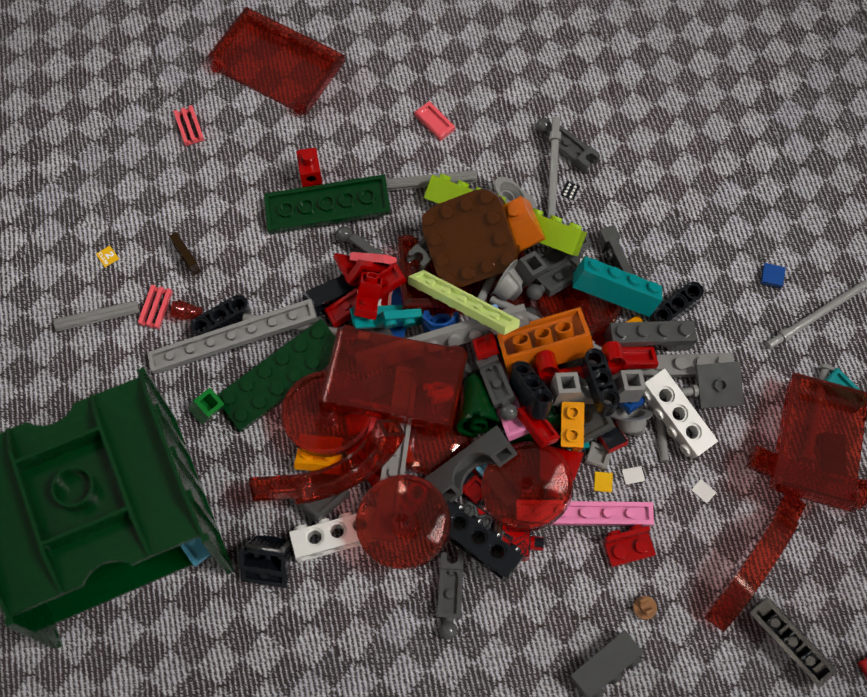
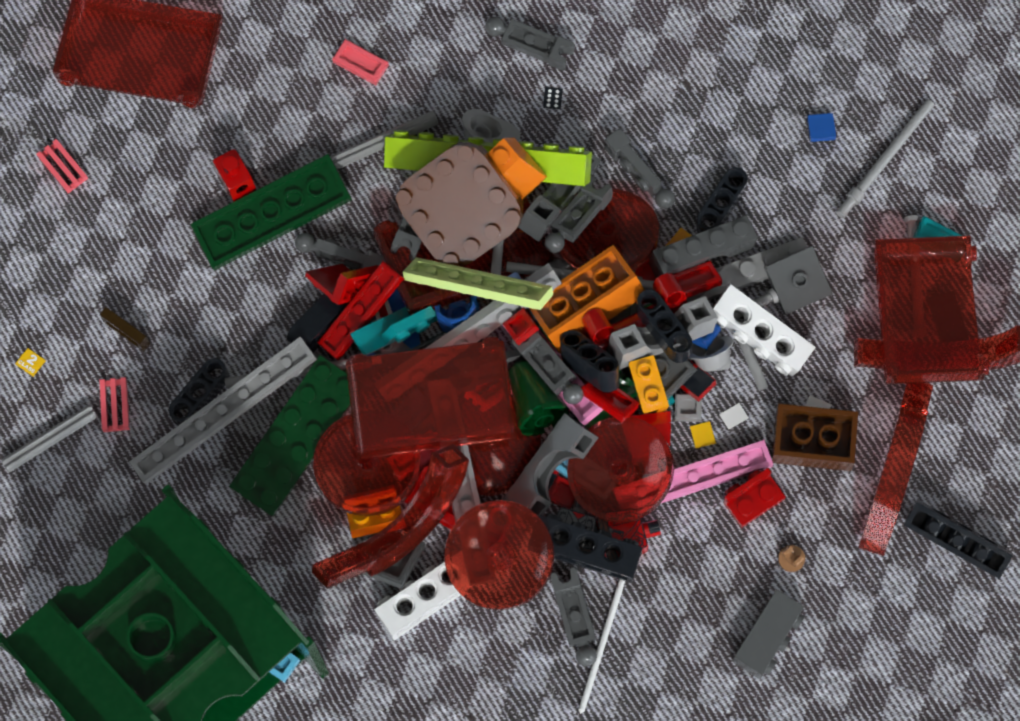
camera: 15 degrees left, 5 degrees up
(184, 311) = (153, 397): clear red cone -> none
(206, 406) = (224, 501): green brick -> none
(265, 561) = (360, 650): black piece -> none
(368, 295) = (366, 311): red slope -> none
(377, 258) = (353, 264): coral tile -> none
(463, 626) = (601, 646): none -> white axle
(509, 284) = (524, 245): light grey piece -> none
(554, 138) = (514, 40): light grey bar -> none
(617, 286) = (647, 204): teal brick -> none
(696, 514) = (815, 437): none -> reddish brown brick

